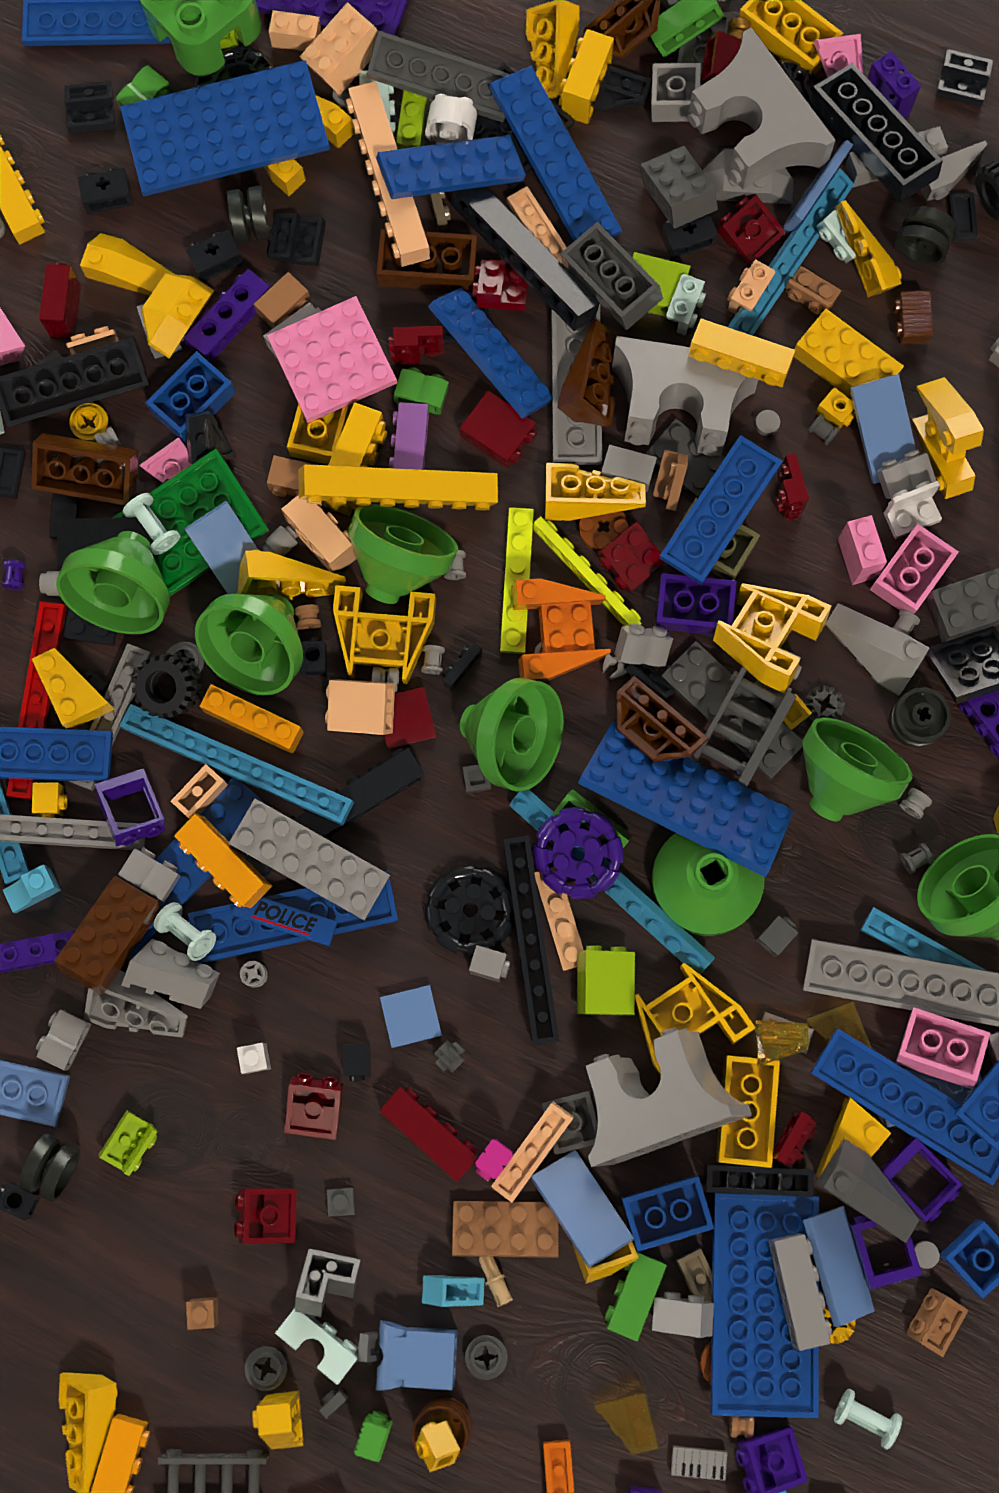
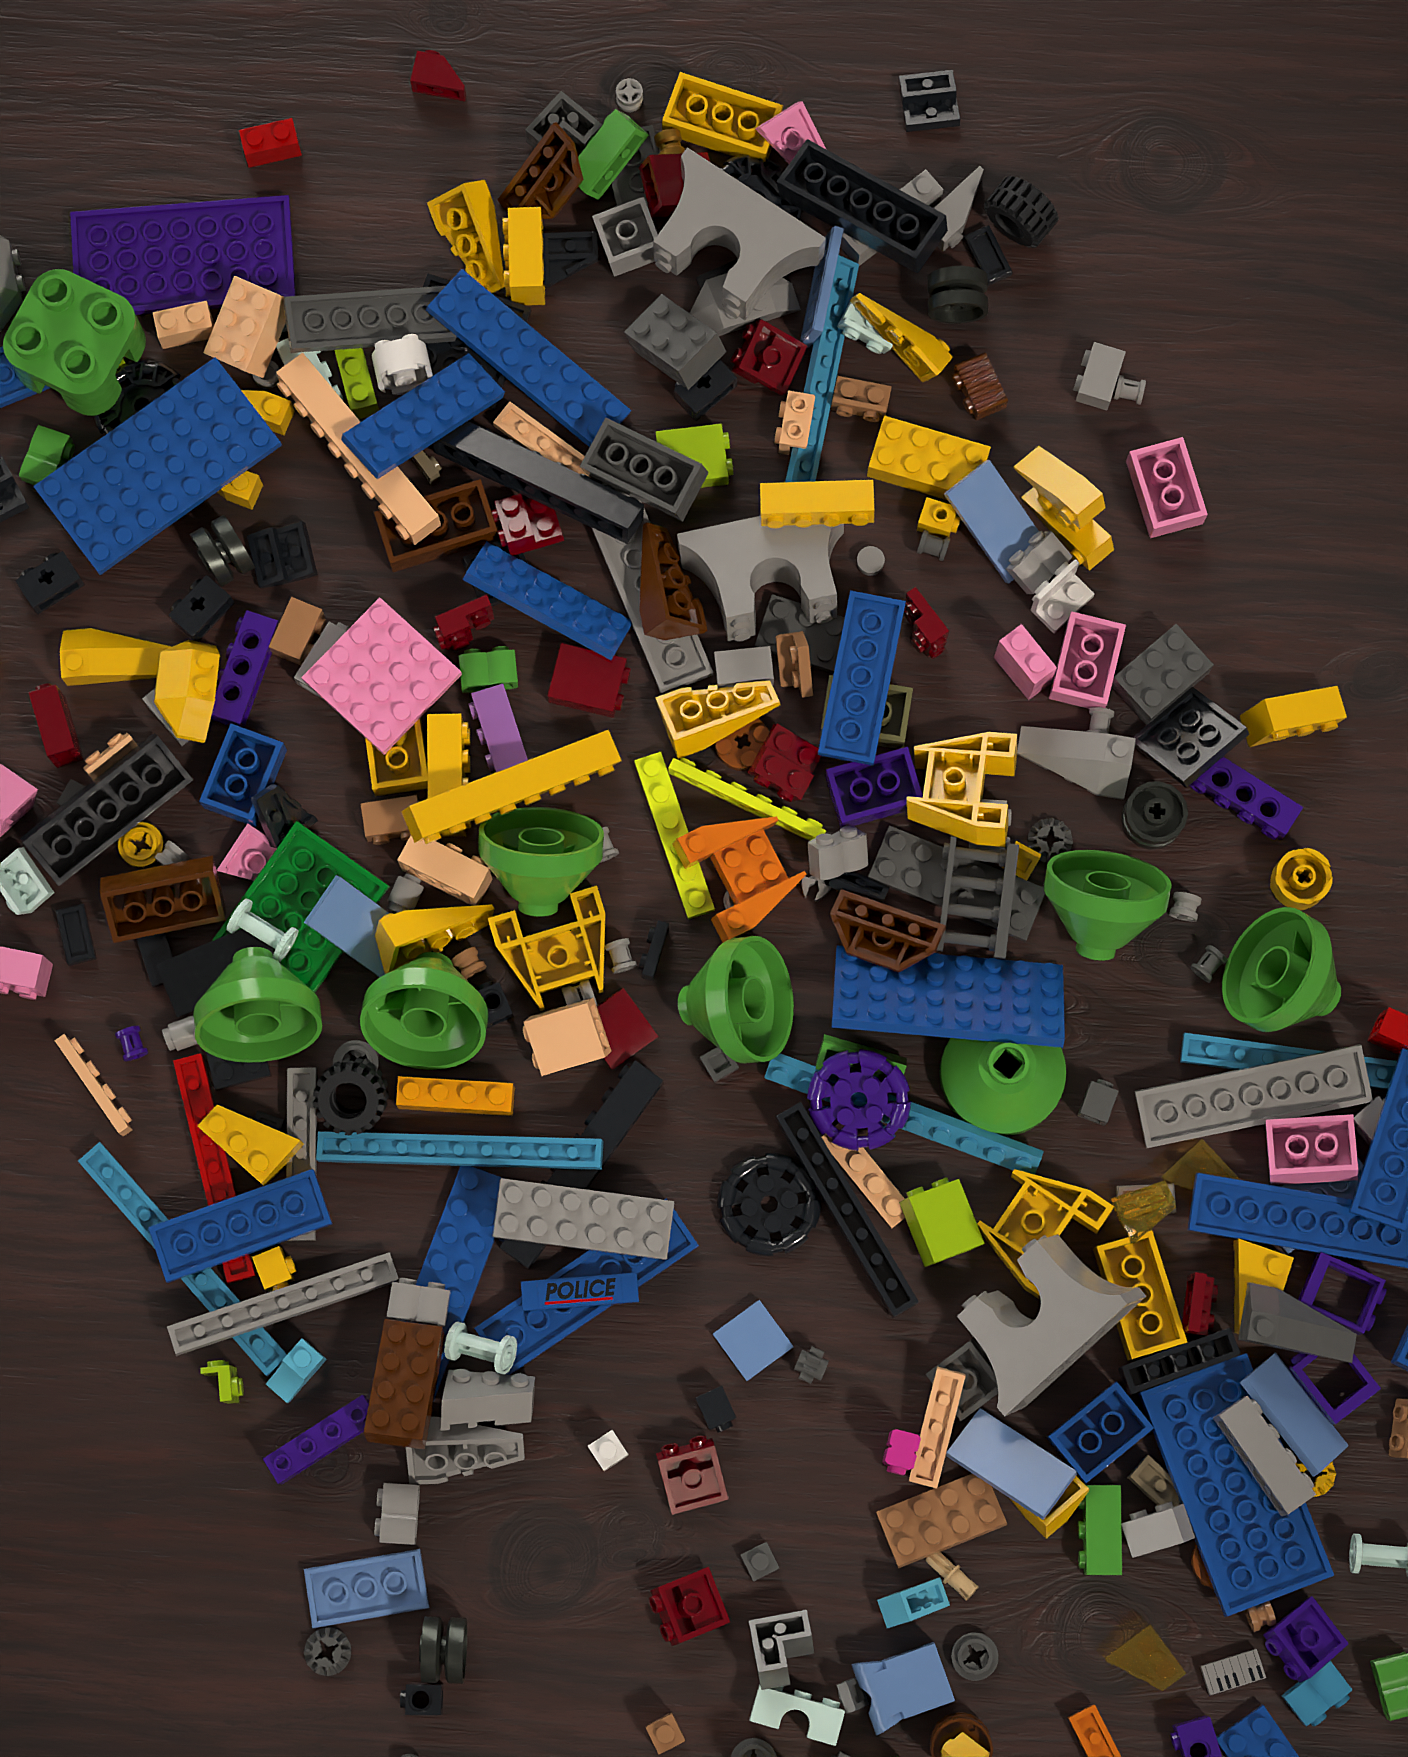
camera: 25 degrees left, 0 degrees up
(123, 786) = (348, 1222): dark purple window -> none
(129, 1143) = (514, 1592): lime bracket -> none
(199, 792) = (433, 1196): light nougat brick -> none
(223, 861) = (491, 1258): light orange brick -> none
(249, 972) = (565, 1363): light grey wheel -> none
(429, 1134) = (822, 1453): dark red brick -> none
(489, 964) = (814, 1252): light grey brick -> none
(685, 301) = (731, 461): light aqua bracket -> none
(897, 88) = (848, 141): dark purple window -> none
(927, 1254) = (1378, 1366): light grey tile -> none

